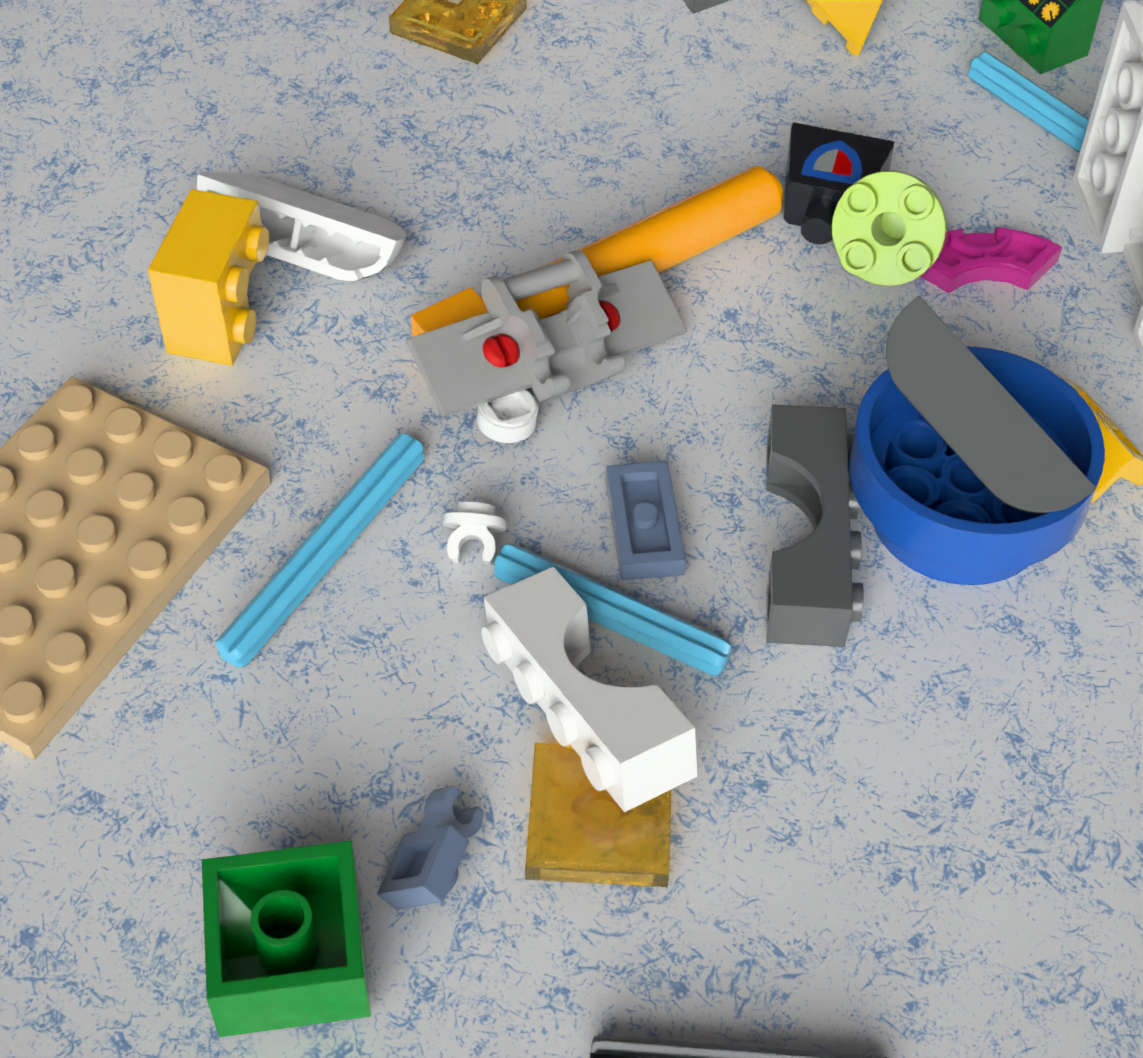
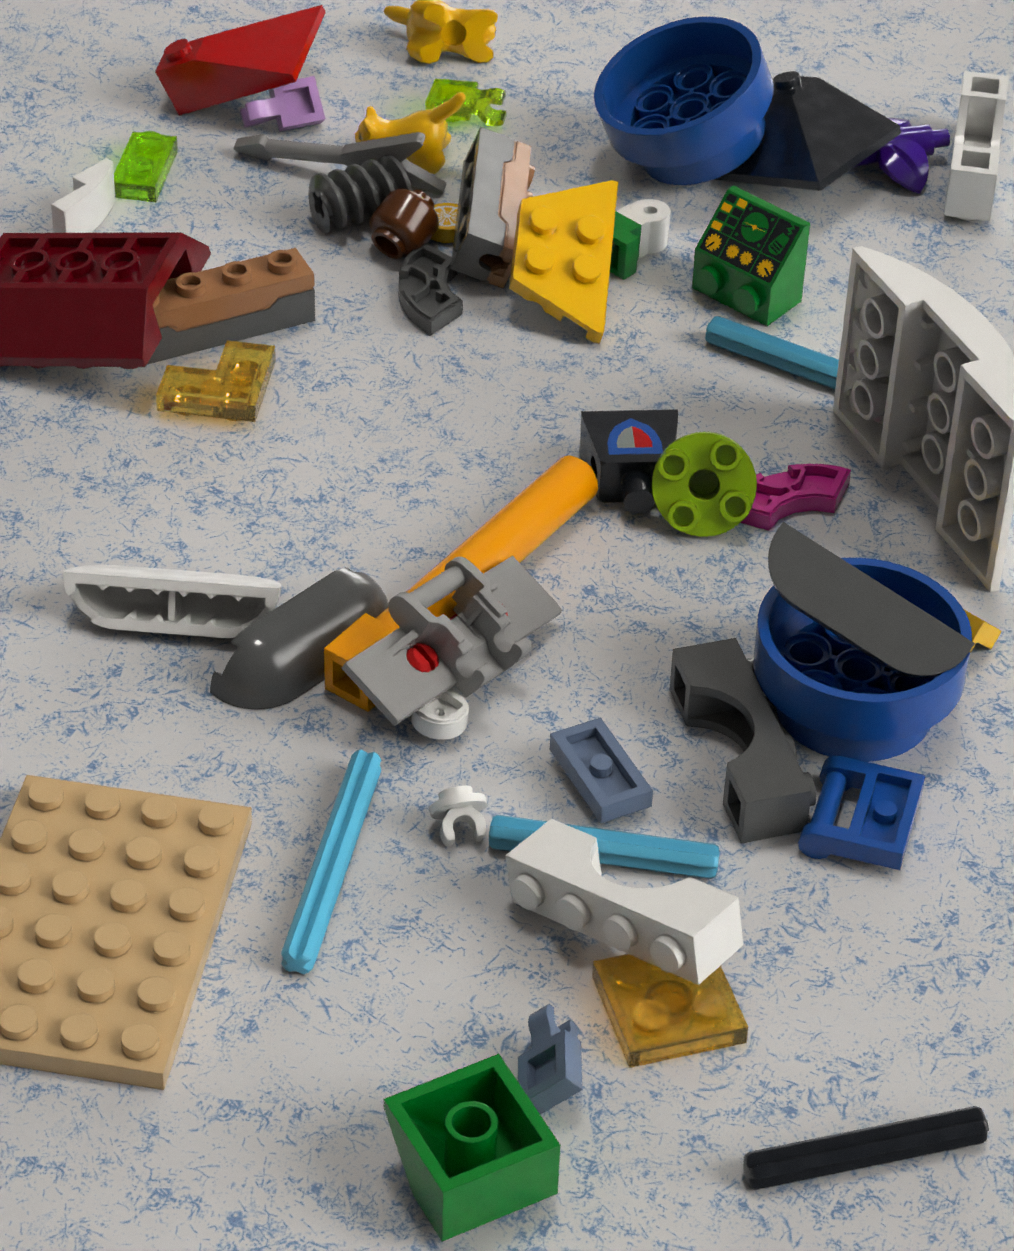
camera: 20 degrees left, 10 degrees down
(204, 276) = (128, 657): yellow slope -> none
(372, 307) = (285, 648): none -> dark grey brick
(926, 659) = (881, 816): none -> blue plate

